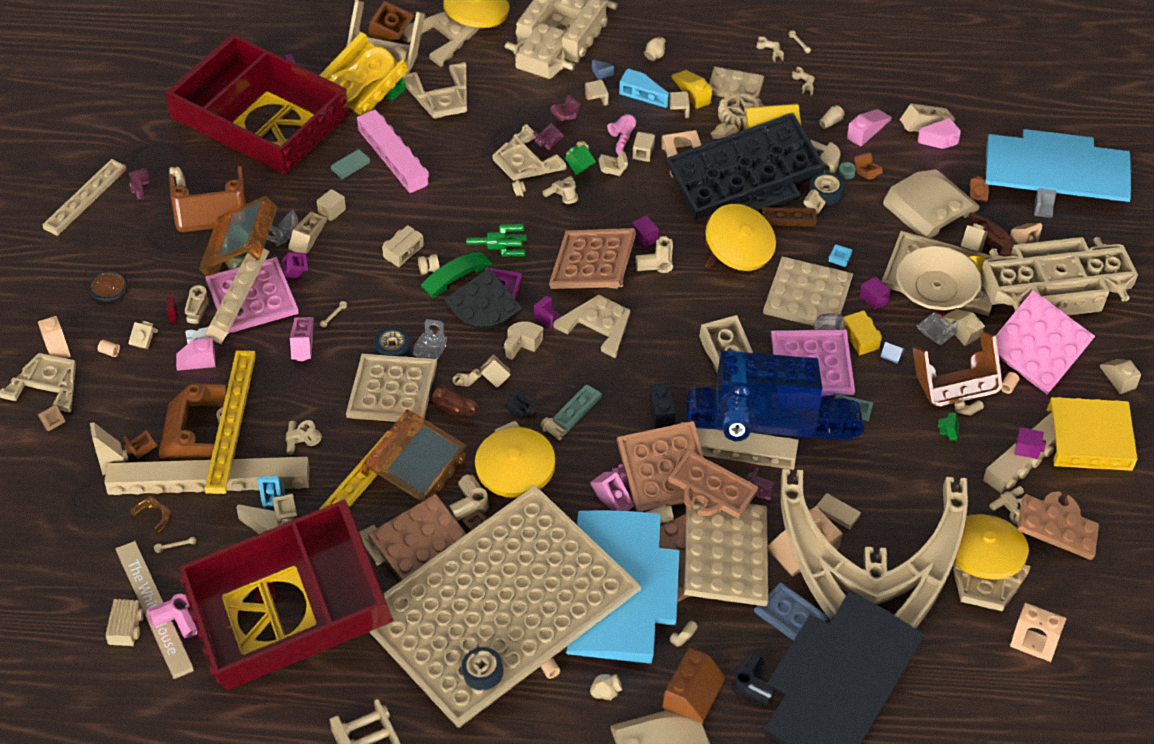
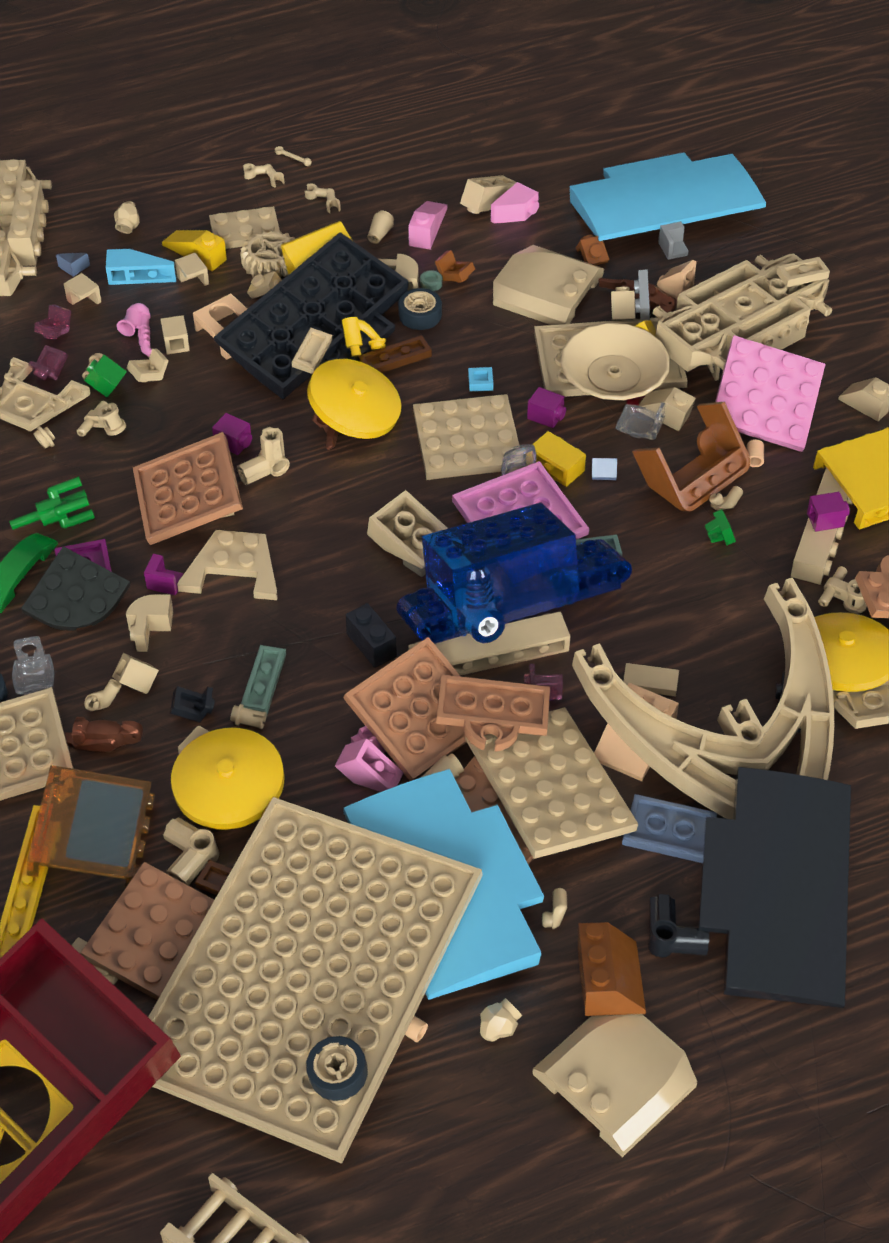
camera: 25 degrees left, 0 degrees up
(729, 192) = (312, 350): none -> tan tile
(763, 191) = (353, 338): none -> yellow plant
(814, 200) = (414, 327): tan plate -> none
(987, 242) = (641, 288): none -> light grey plate
(1118, 261) = (803, 272): none -> tan plate

